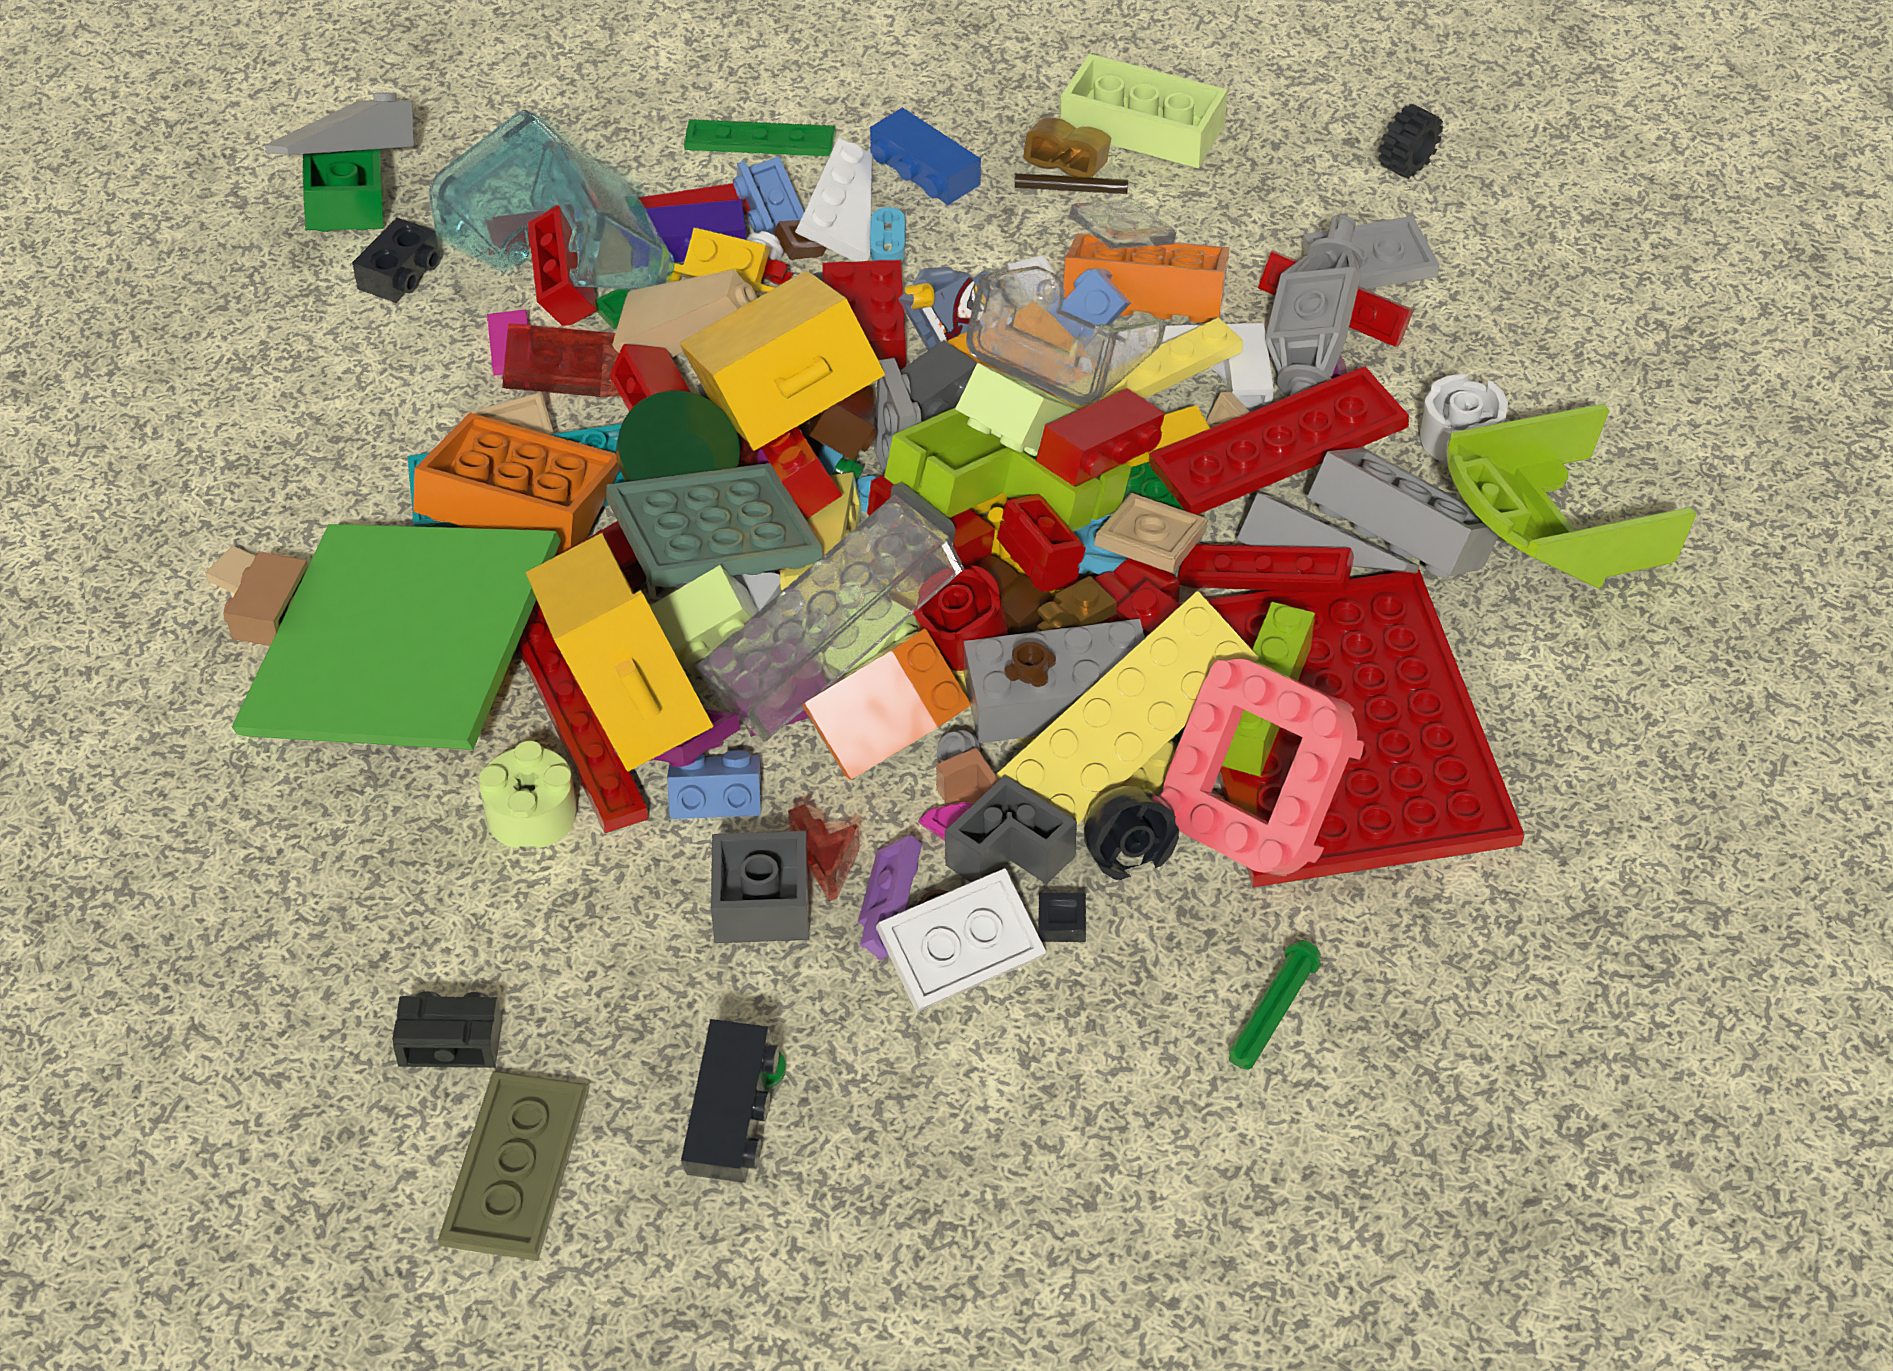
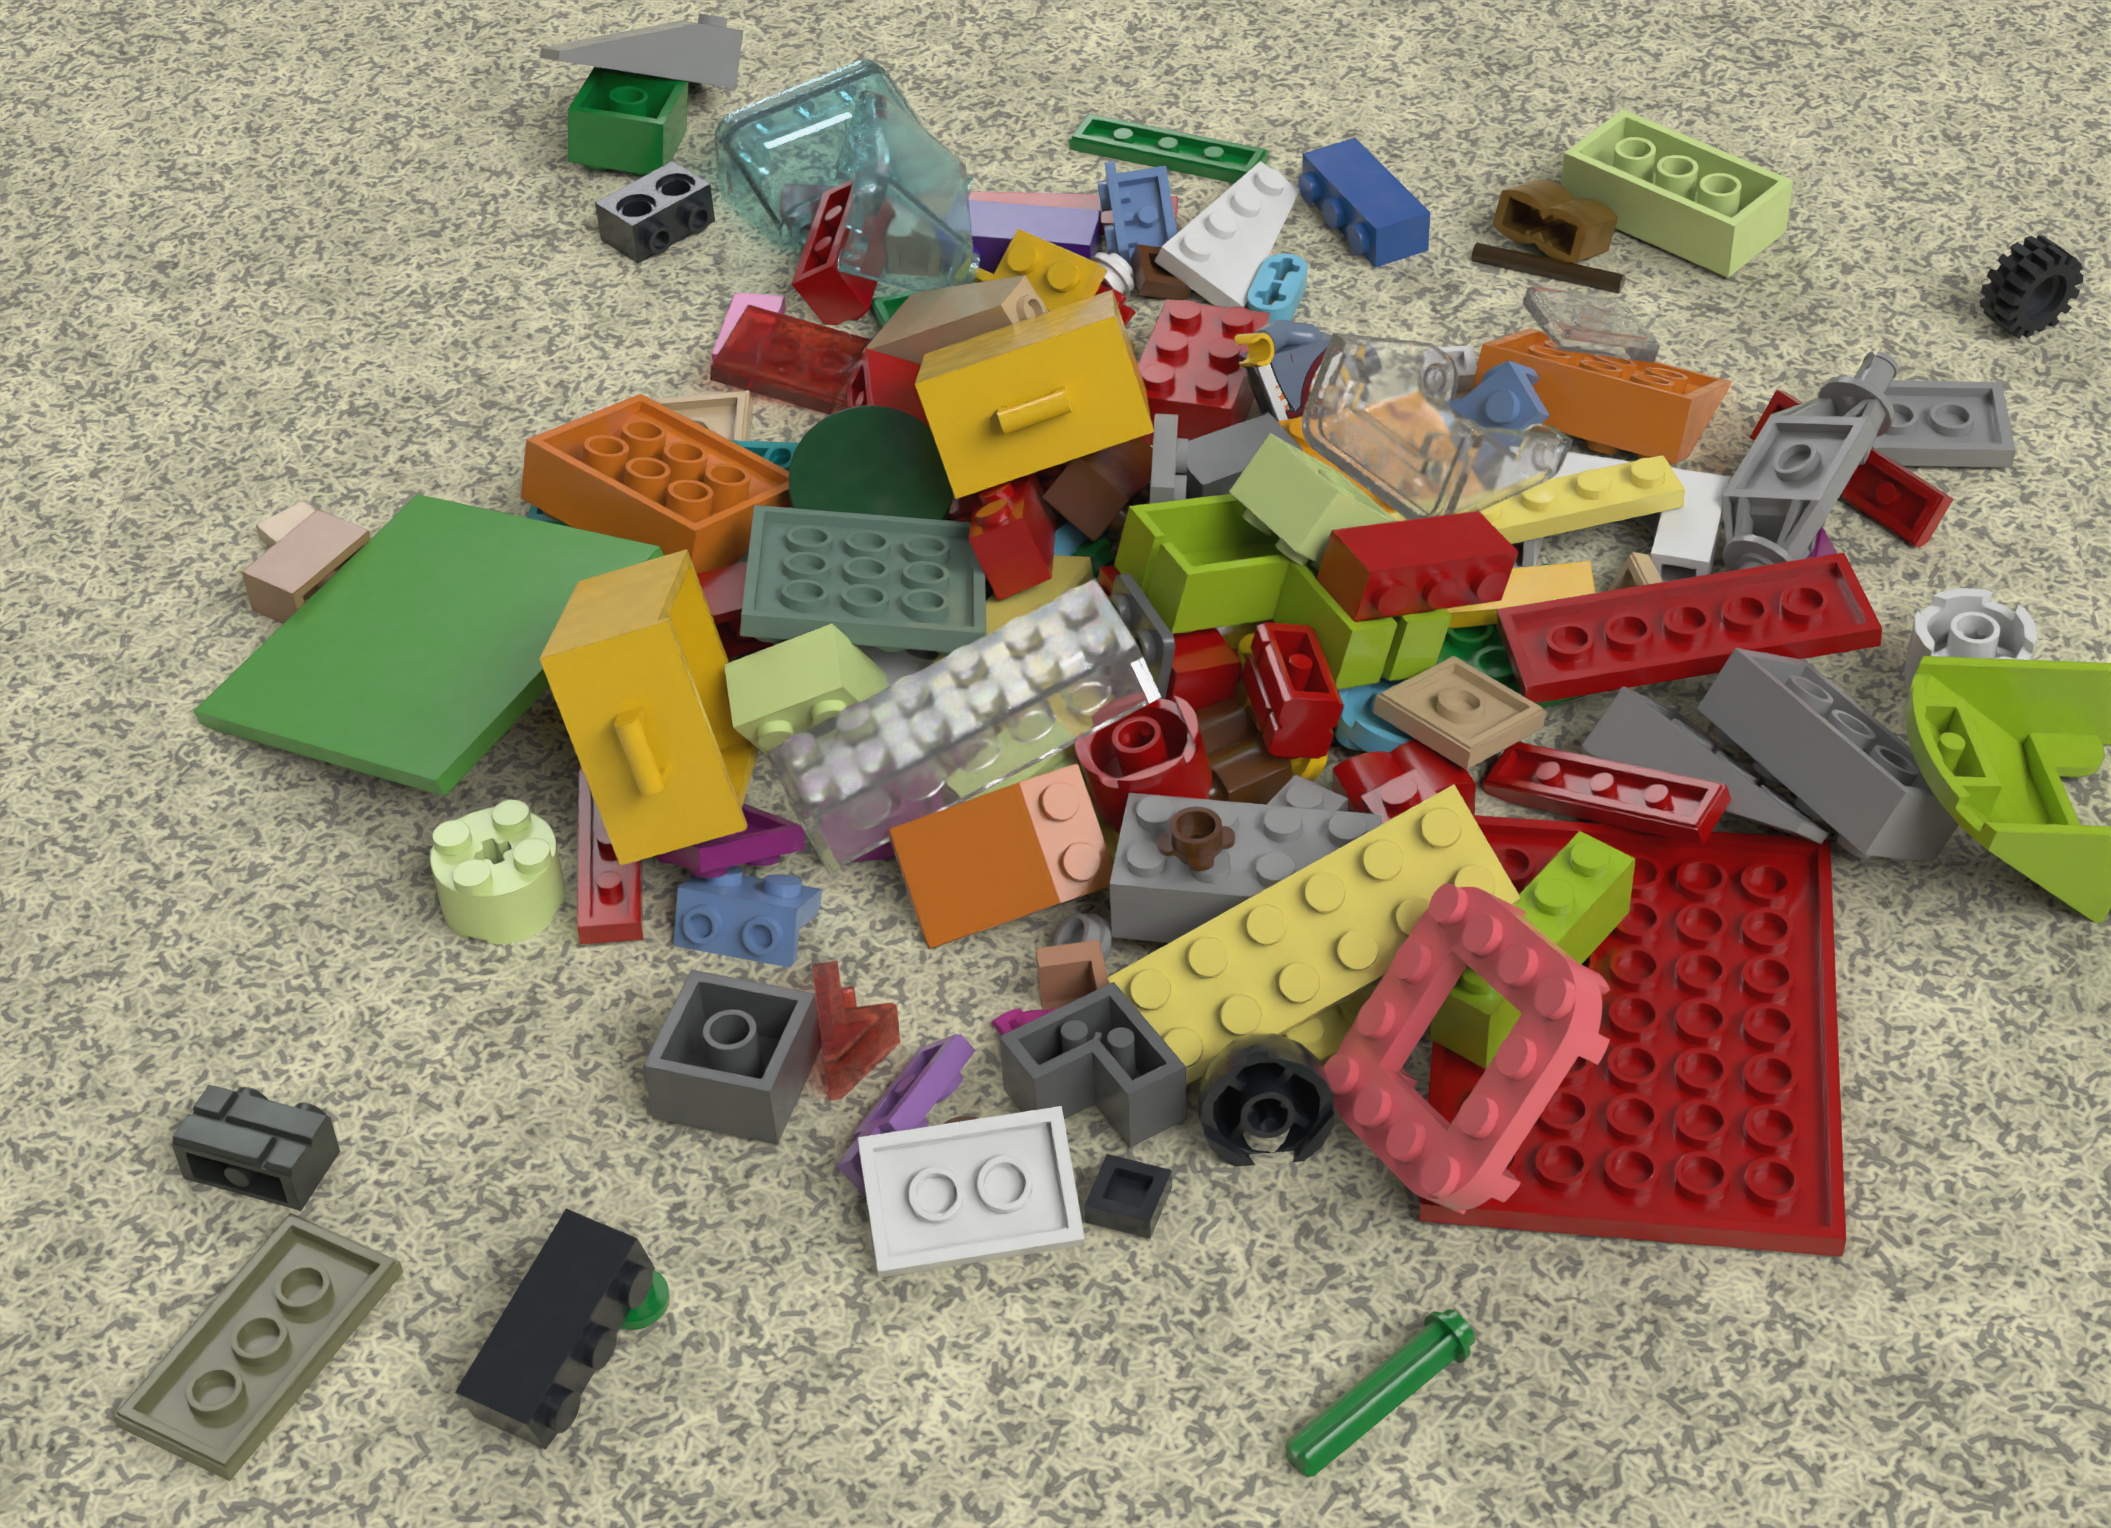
camera: 20 degrees right, 5 degrees down
(1078, 606) = (1305, 781): pearl gold plate -> none

